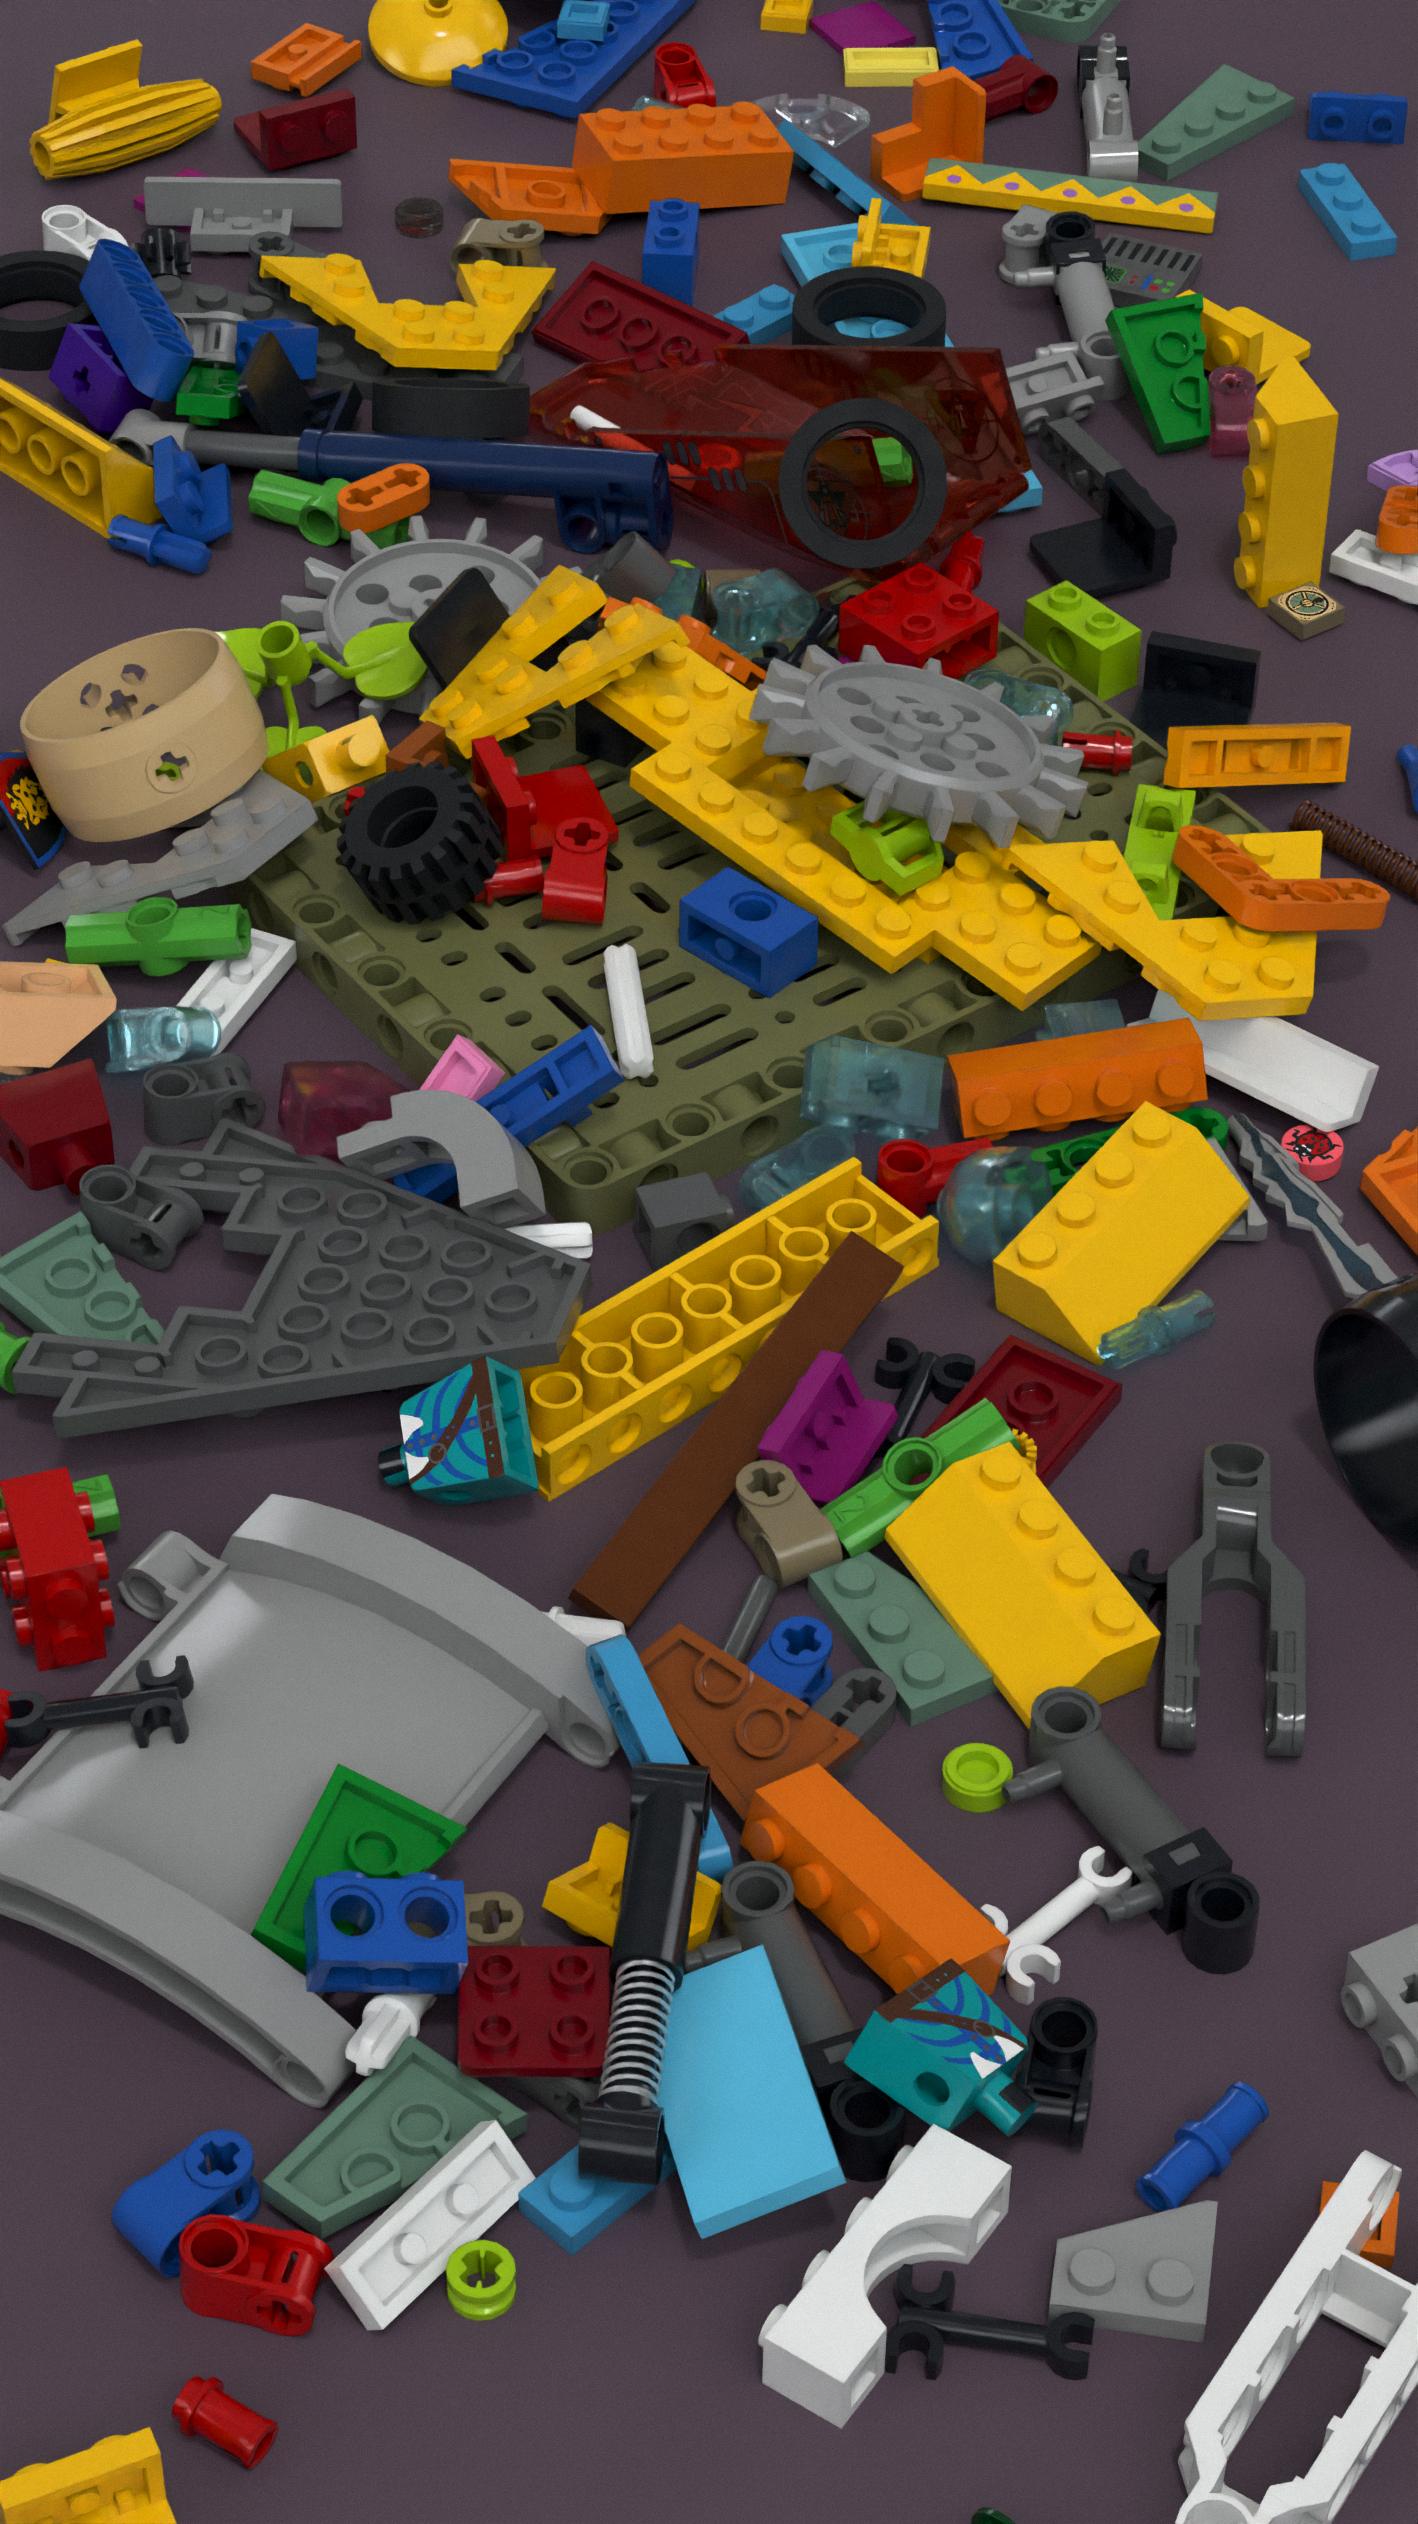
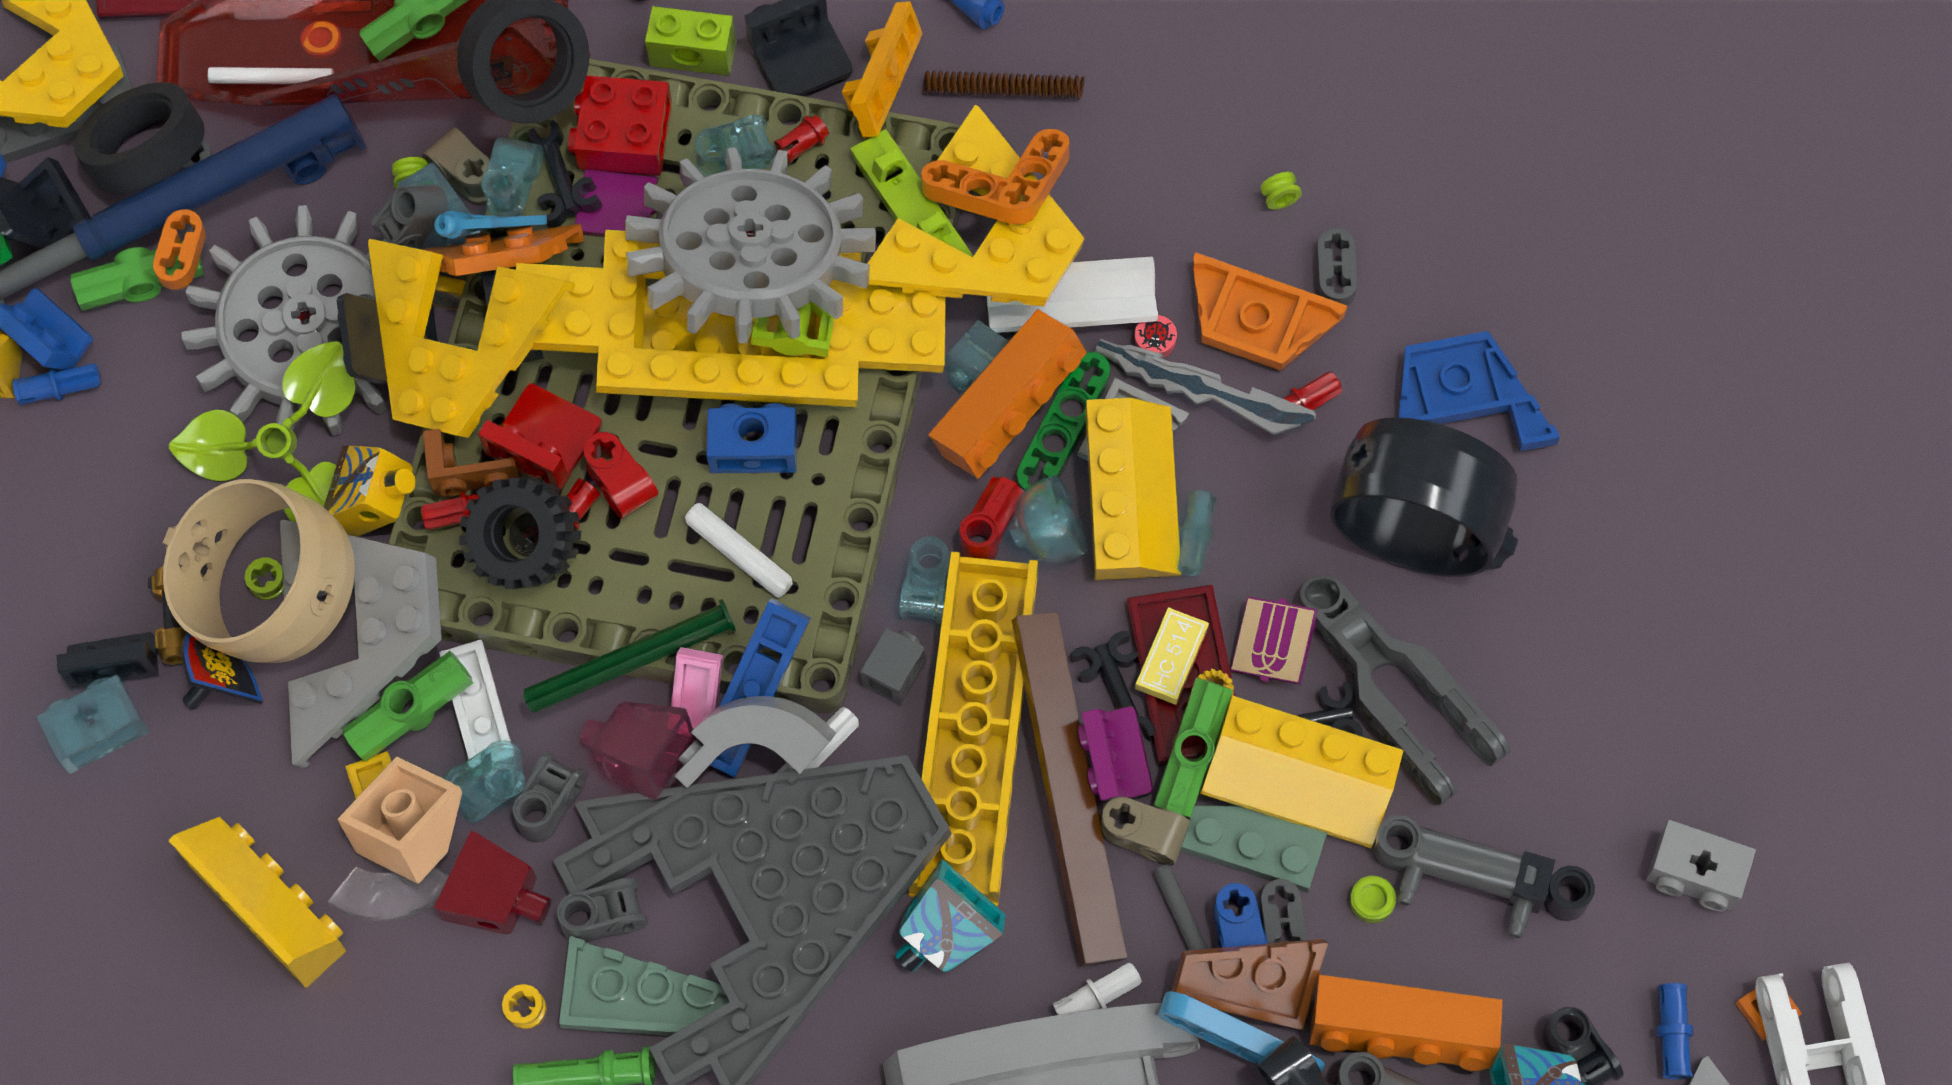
camera: 40 degrees left, 25 degrees up
(409, 1020) = (628, 658): none -> dark green axle
(675, 601) = (460, 224): none -> dark azure arm
(871, 1088) = (916, 496): clear light blue brick -> none
(1021, 1392) = (1172, 656): none -> light yellow tile
(1025, 1947) = (1484, 959): white bar -> none
(1133, 1468) = (1274, 640): none -> piece

